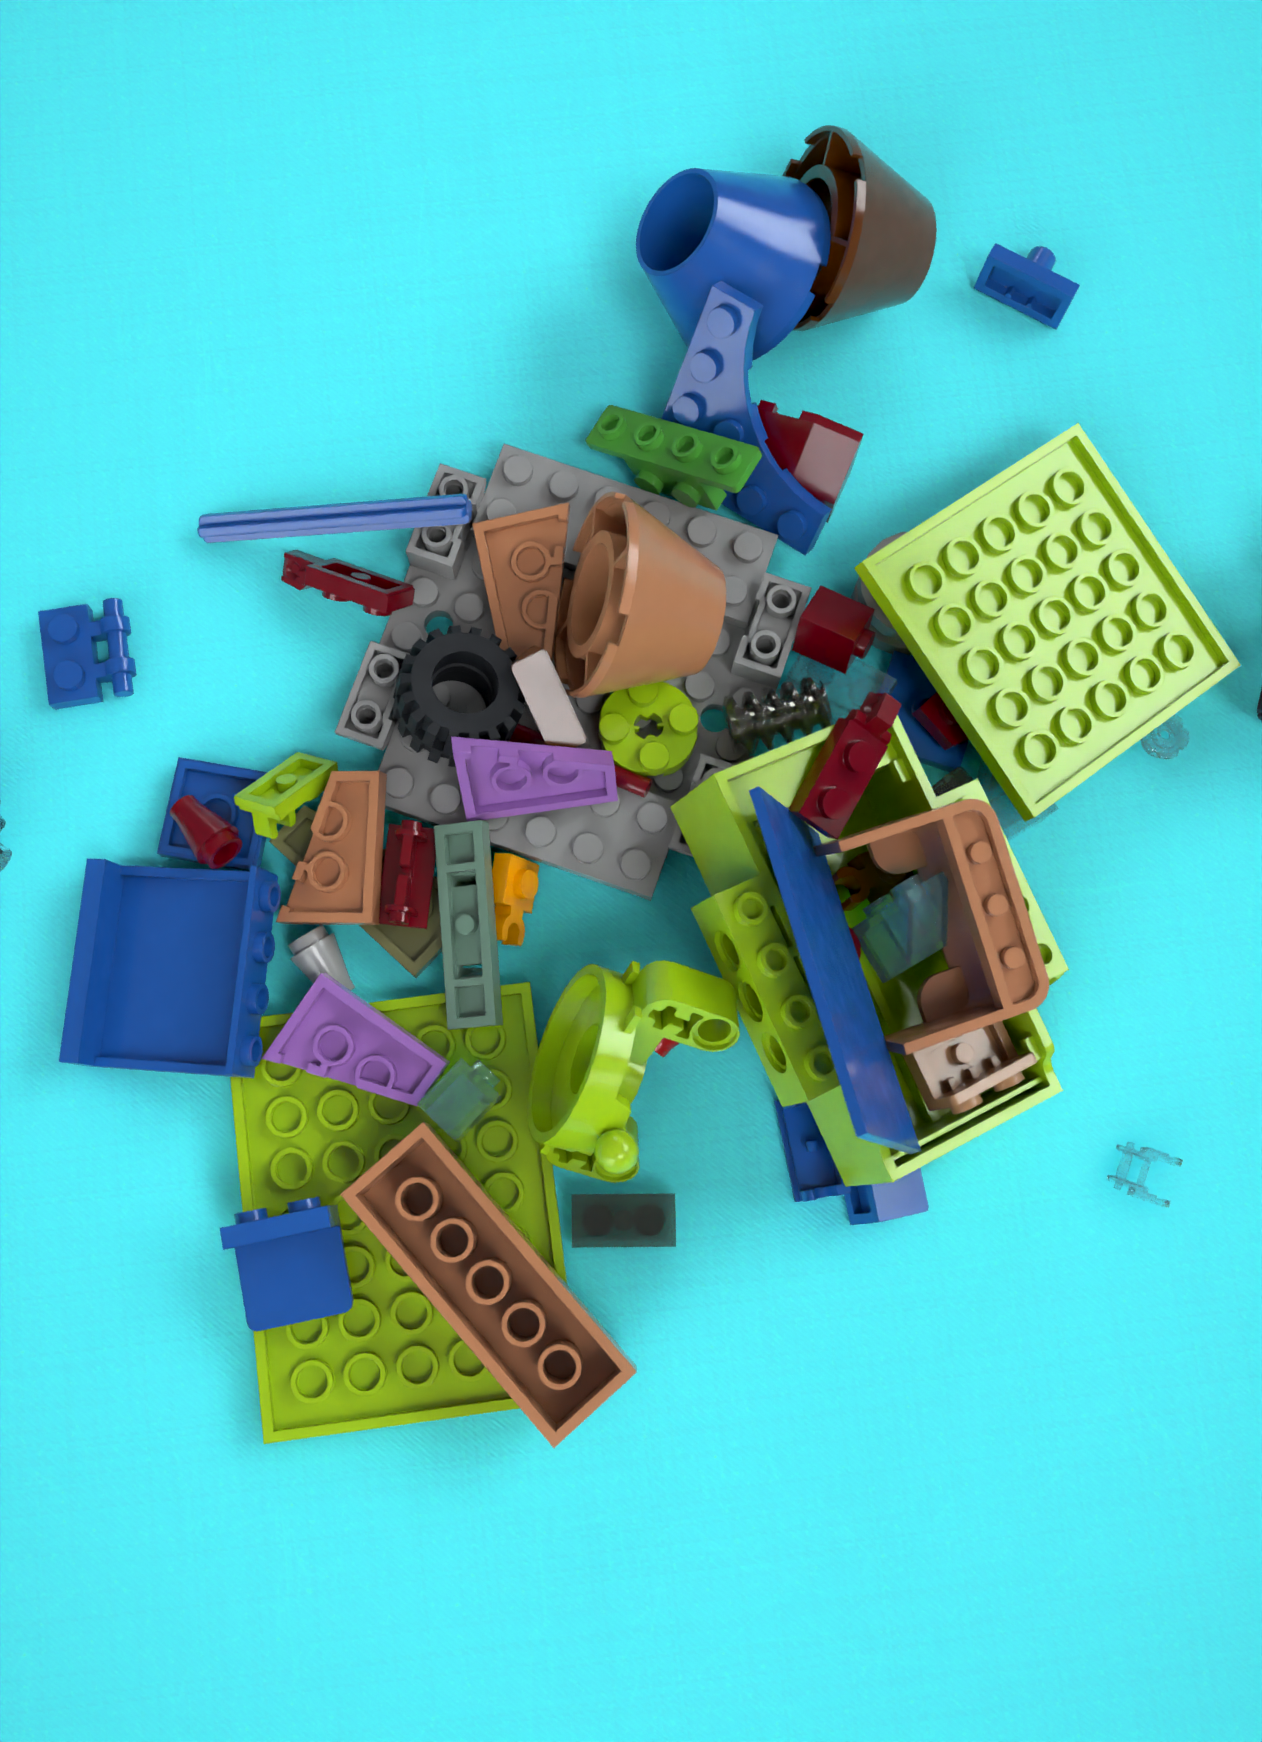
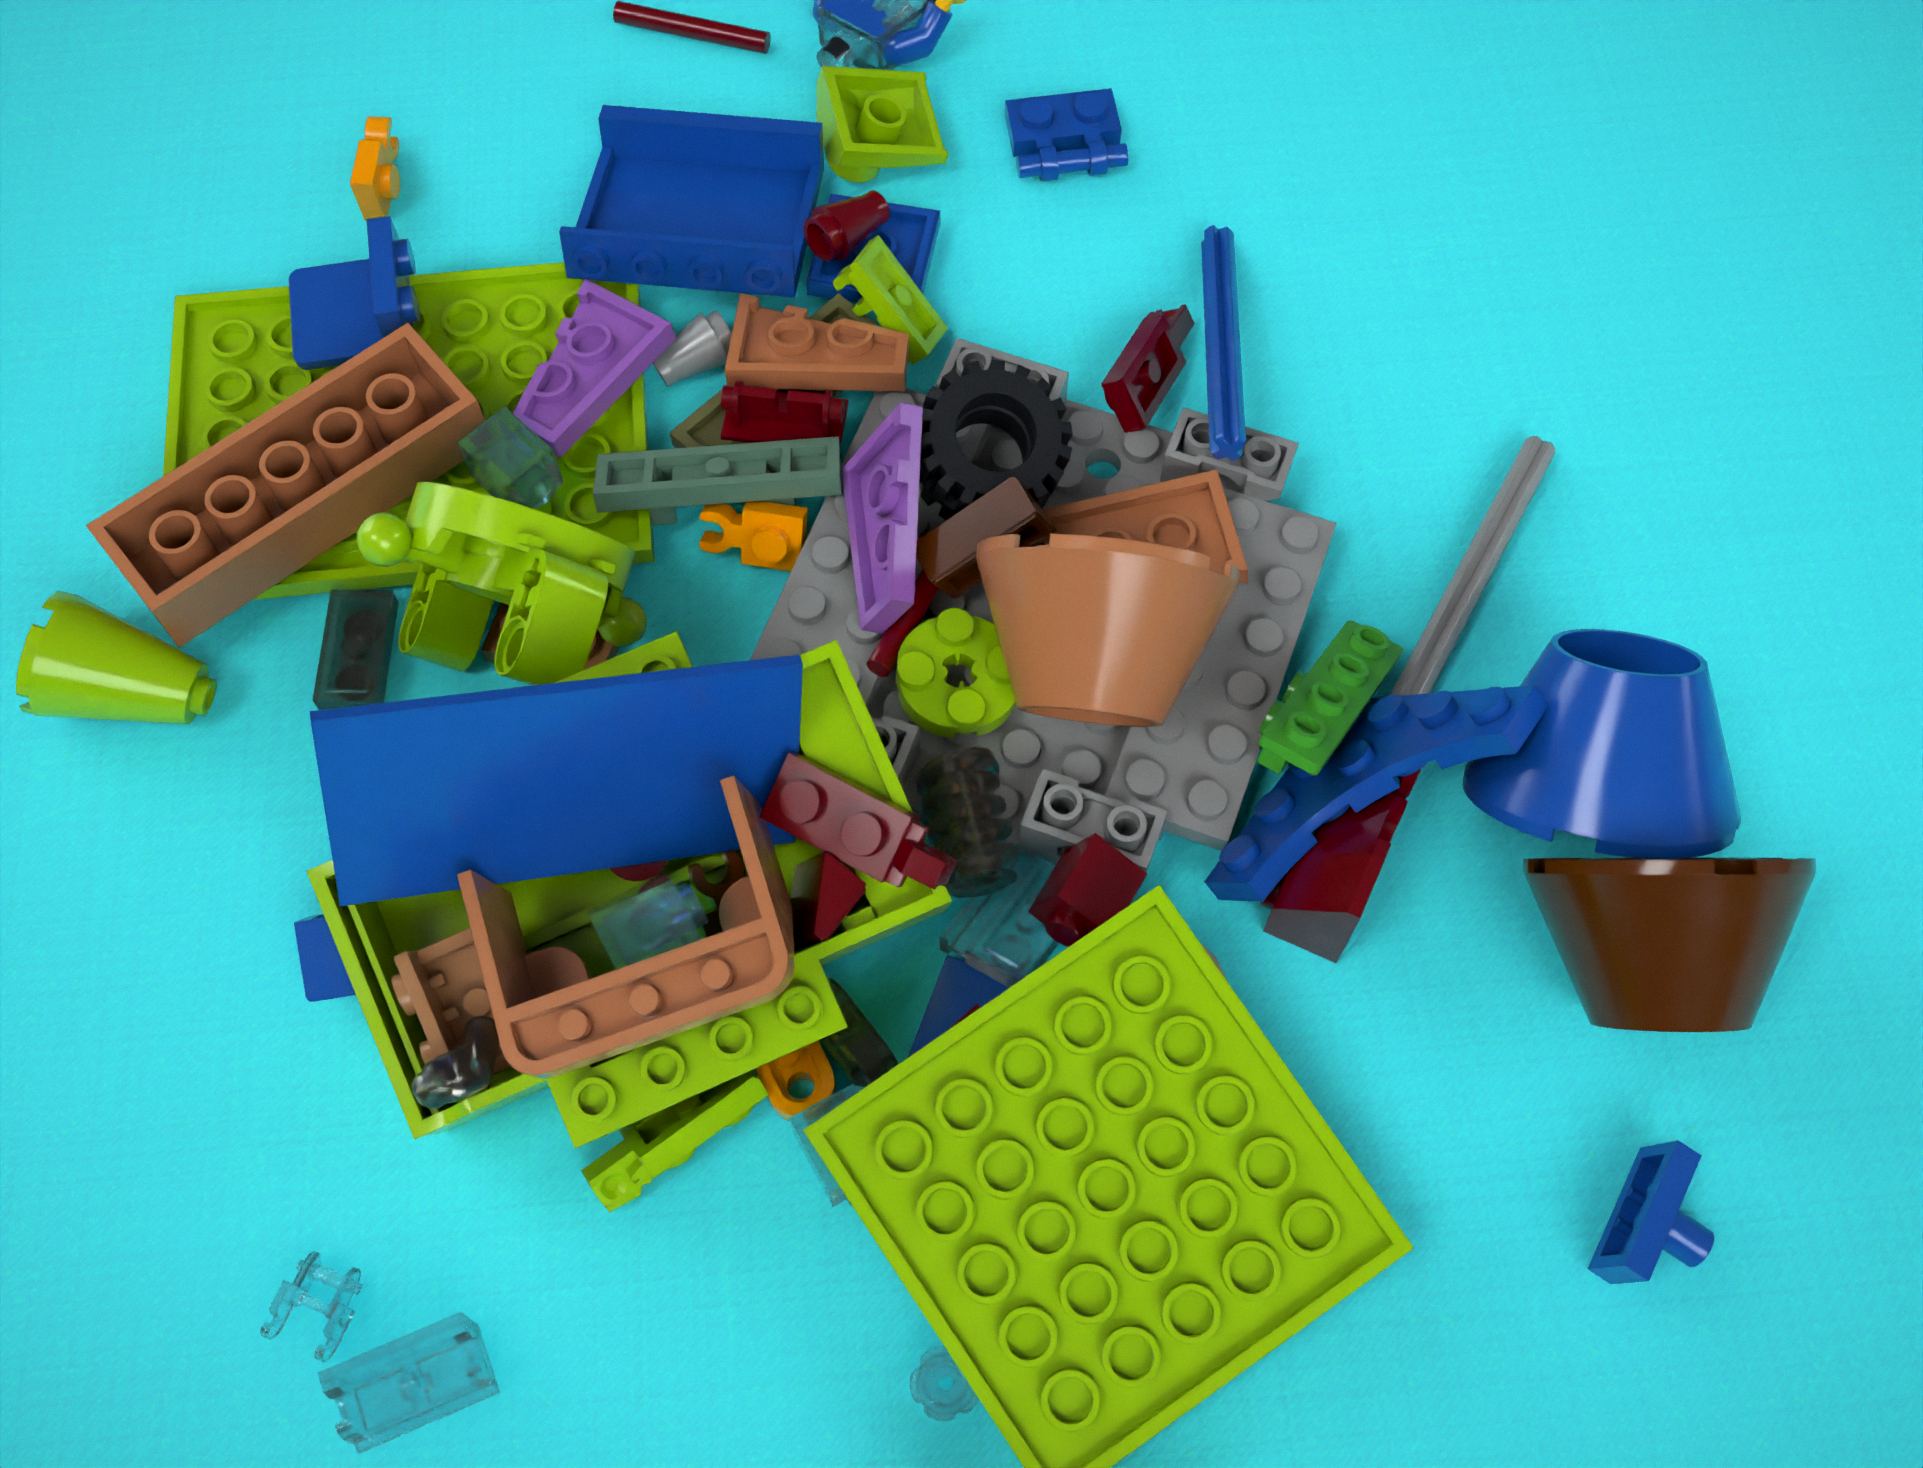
camera: 95 degrees right, 15 degrees down
(76, 814) = (876, 121): none -> lime slope
(126, 1274) = (373, 174): none -> light orange plate
(533, 351) = (1475, 569): none -> light grey axle
(657, 1419) = (107, 669): none -> lime cone
(886, 798) = (822, 897): none -> dark red slope
(1029, 1047) = (462, 1070): none -> clear smoke arm
(1191, 1095) = (410, 1382): none -> clear light blue hinge

